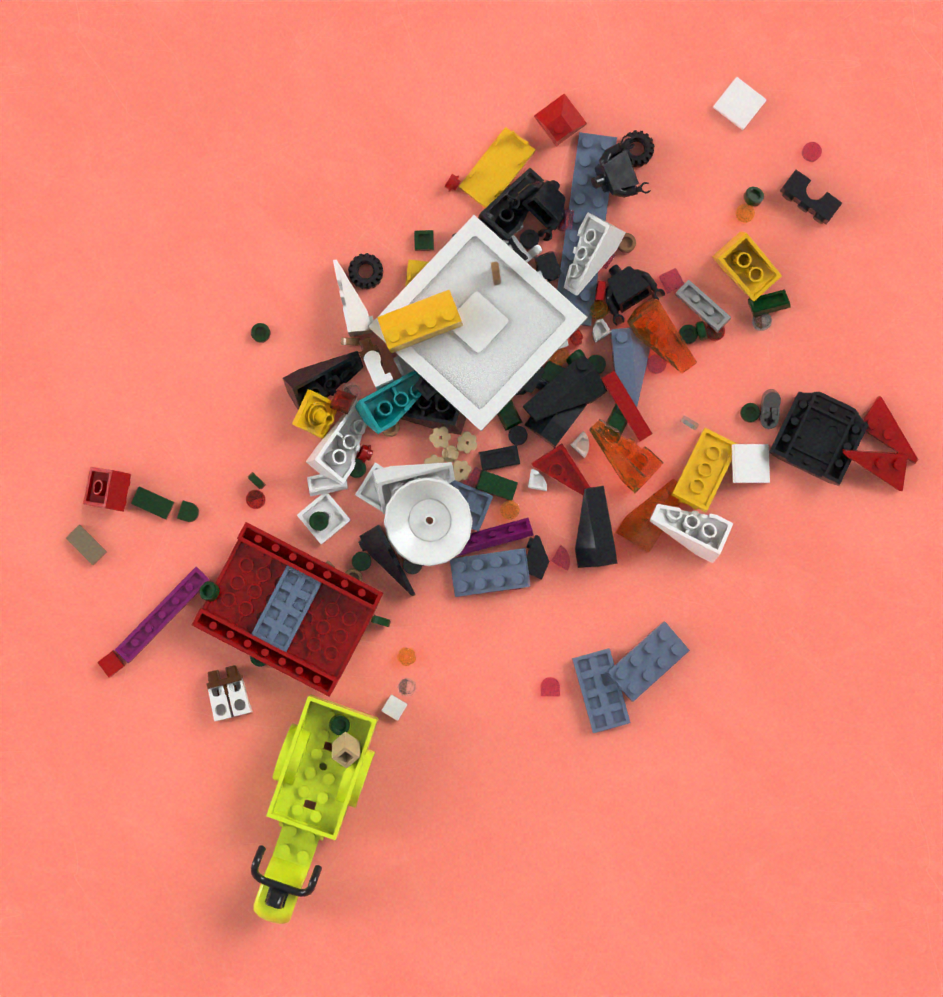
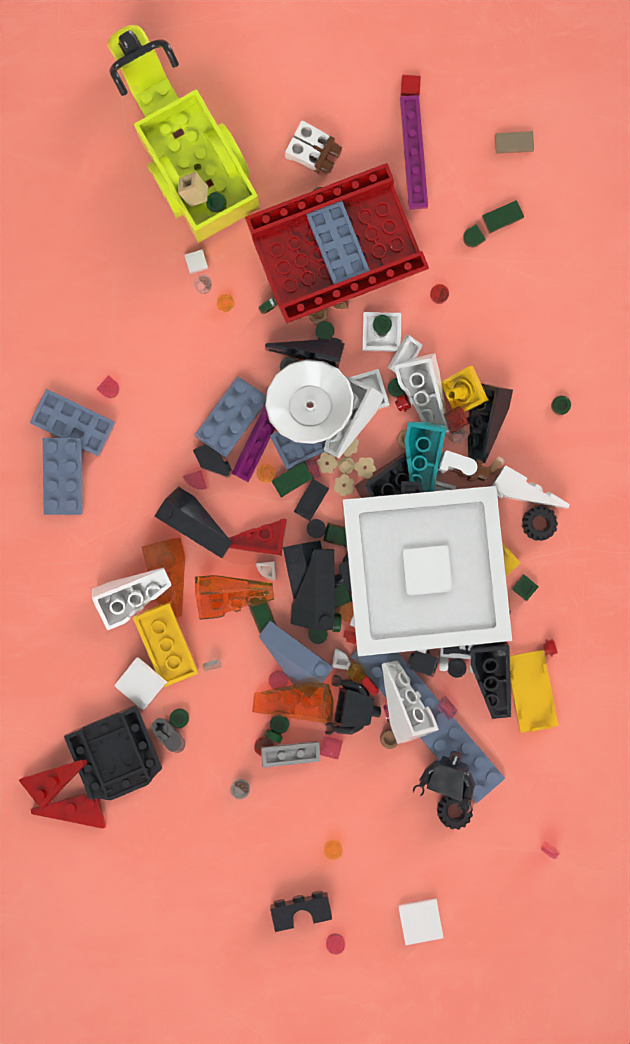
camera: 125 degrees right, 0 degrees up
(107, 489) = (542, 191): red slope -> none
(209, 591) = (400, 199): dark green tile -> none
(256, 480) = (452, 305): dark green tile -> none
(419, 321) = (466, 526): yellow slope -> none
(495, 273) = (452, 616): medium nougat tile -> none
(537, 481) = (269, 512): white tile -> none
(544, 203) = (474, 702): black torso -> none
(560, 119) = (527, 772): red slope -> none
(603, 53) = (550, 850): none -> clear pink tile
(626, 406) = (266, 628): red sticker -> none
(747, 265) = (291, 815): yellow slope -> none
(753, 196) = (340, 868): dark green tile -> none
(769, 303) = (248, 806): dark green tile -> none

